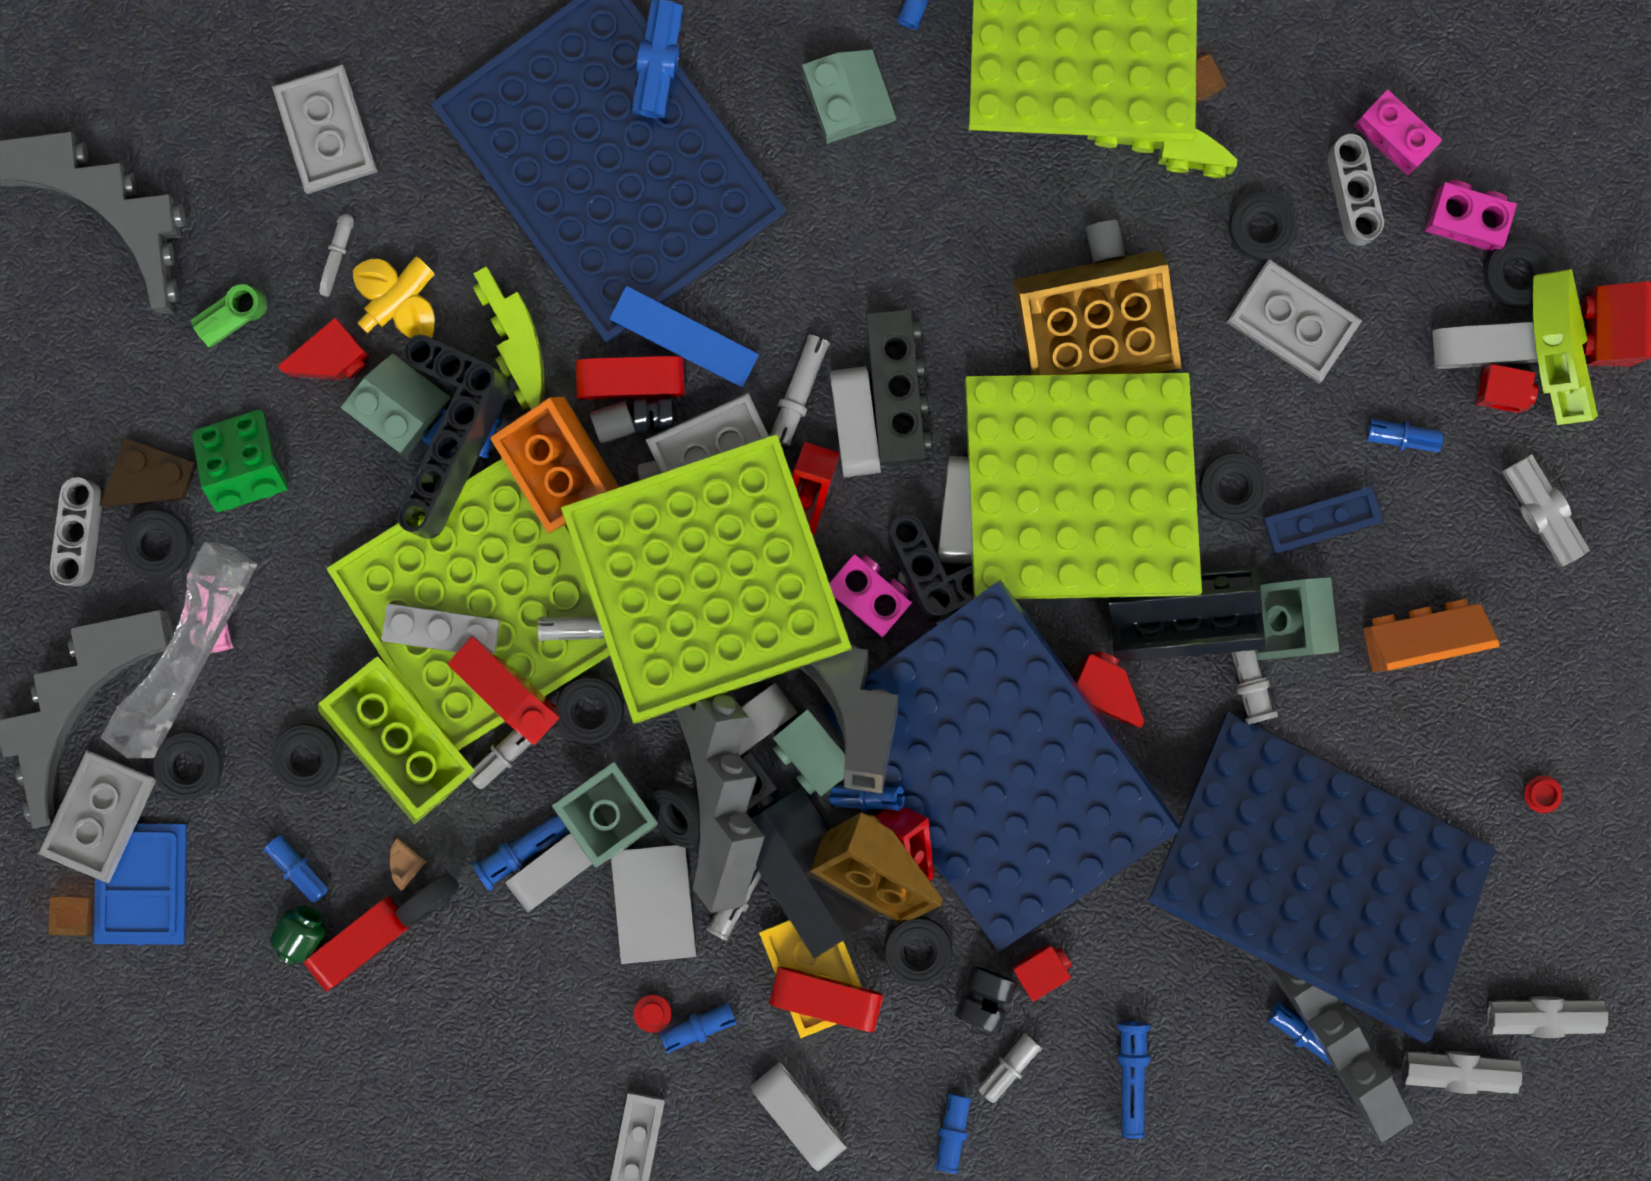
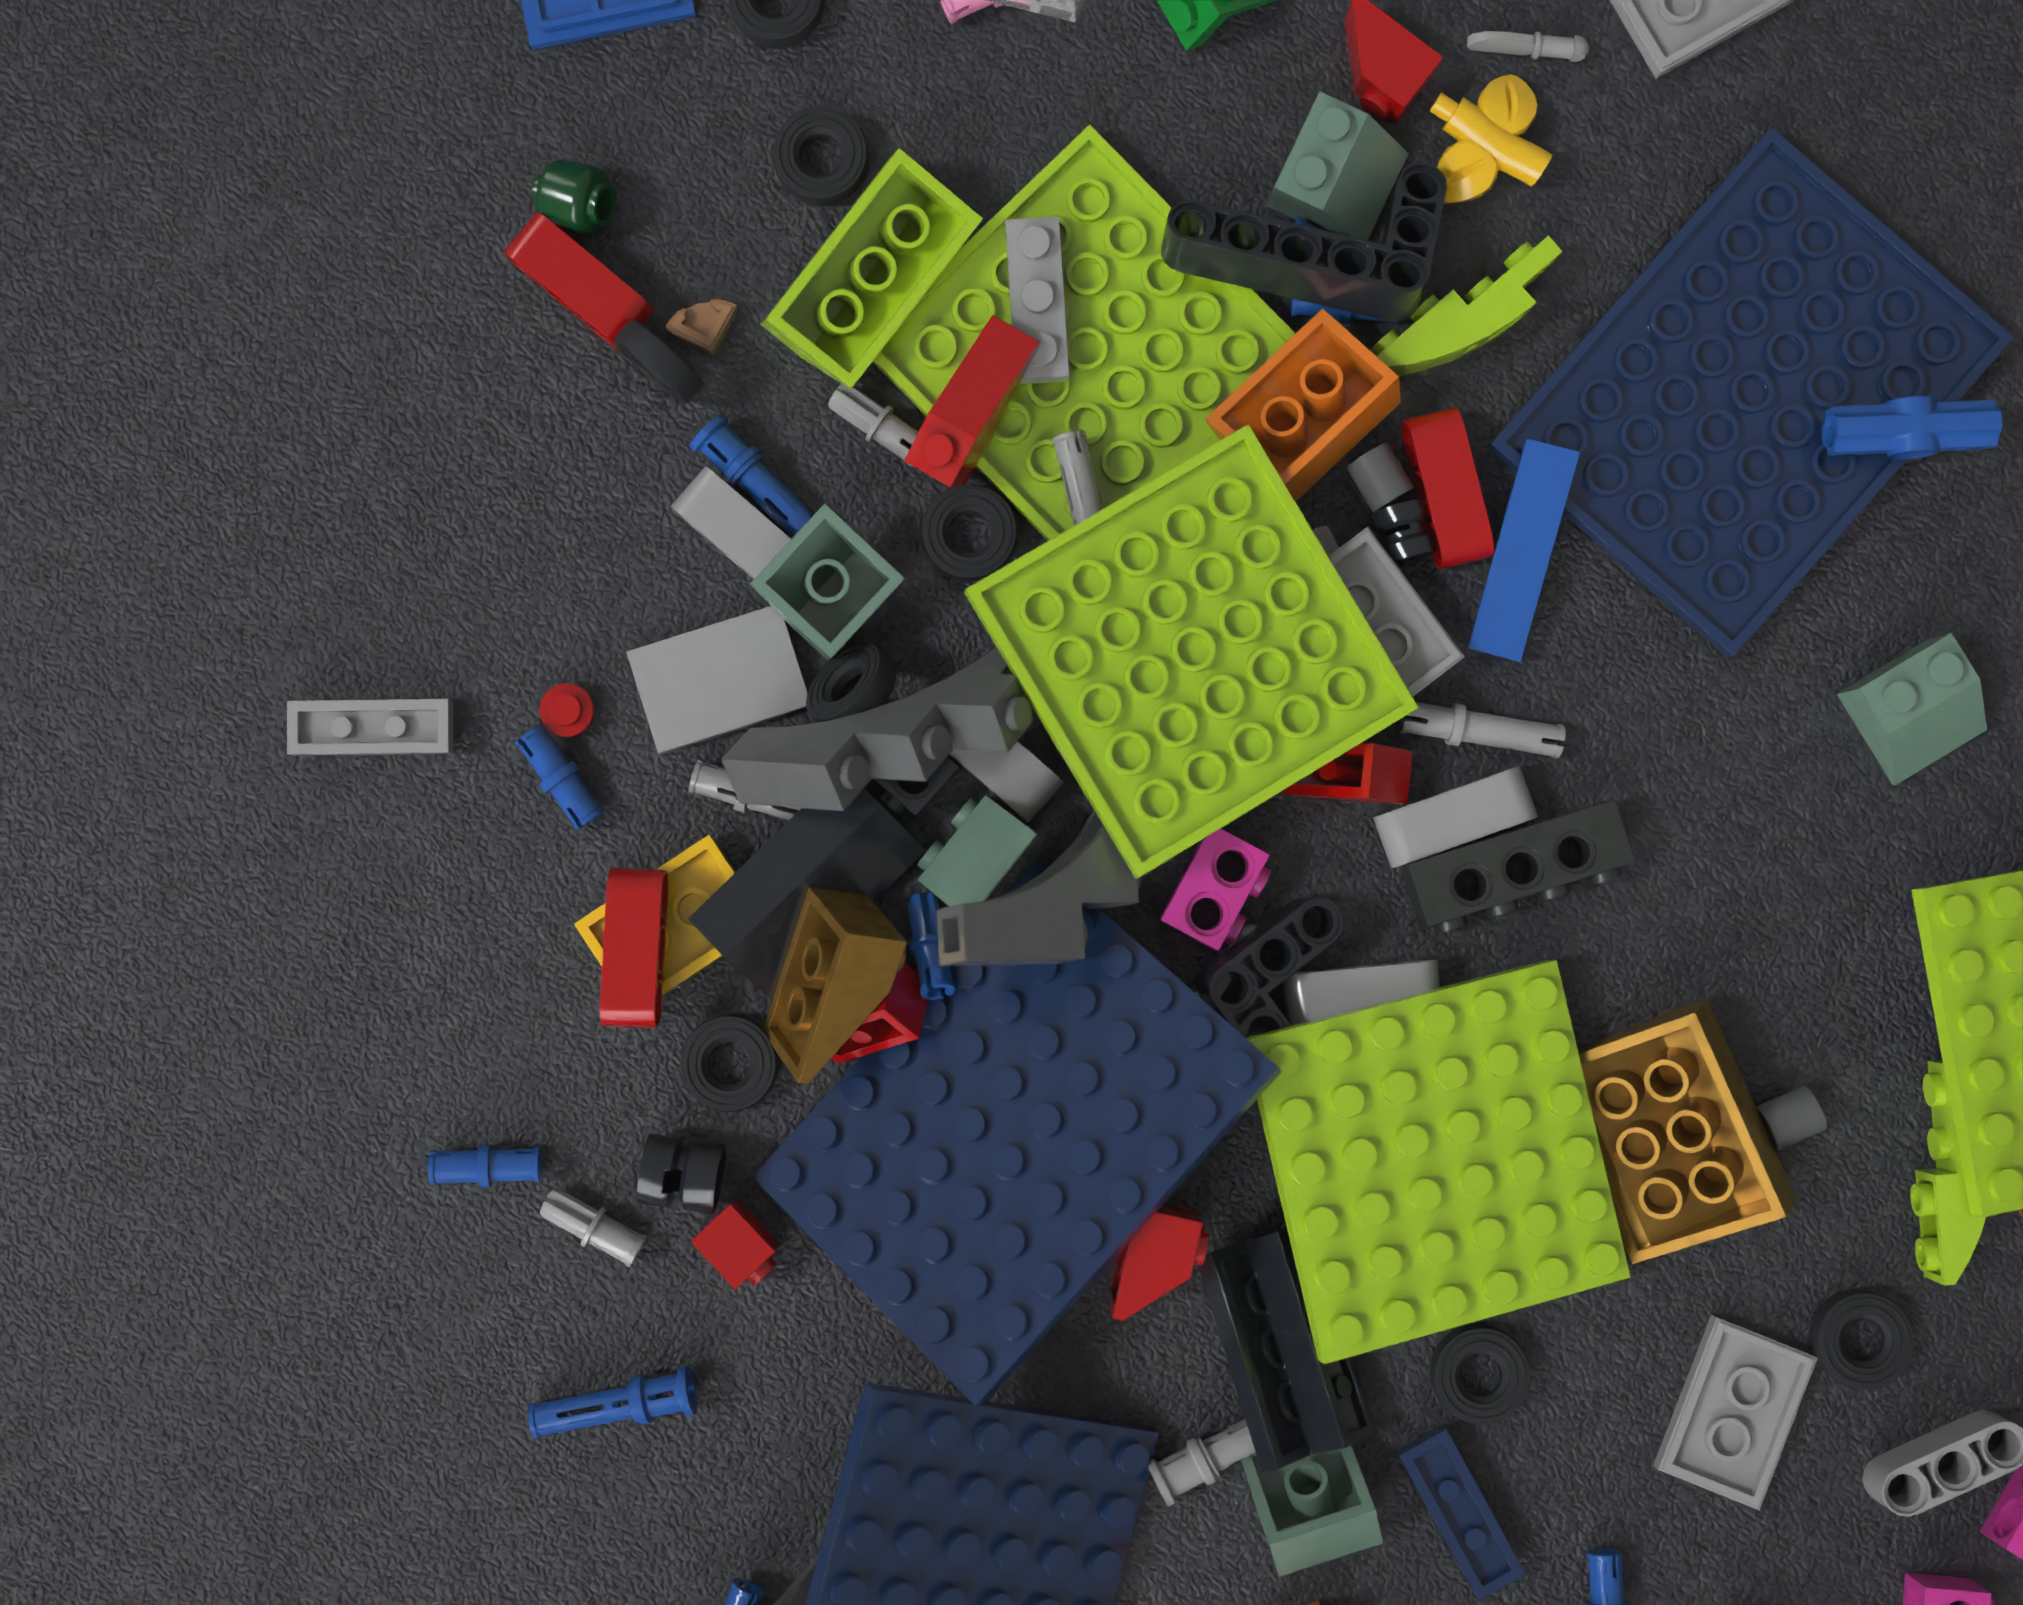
camera: 80 degrees right, 0 degrees up
(296, 869) = (664, 175): blue axle -> none
(798, 1116) = (464, 944): light grey beam -> none

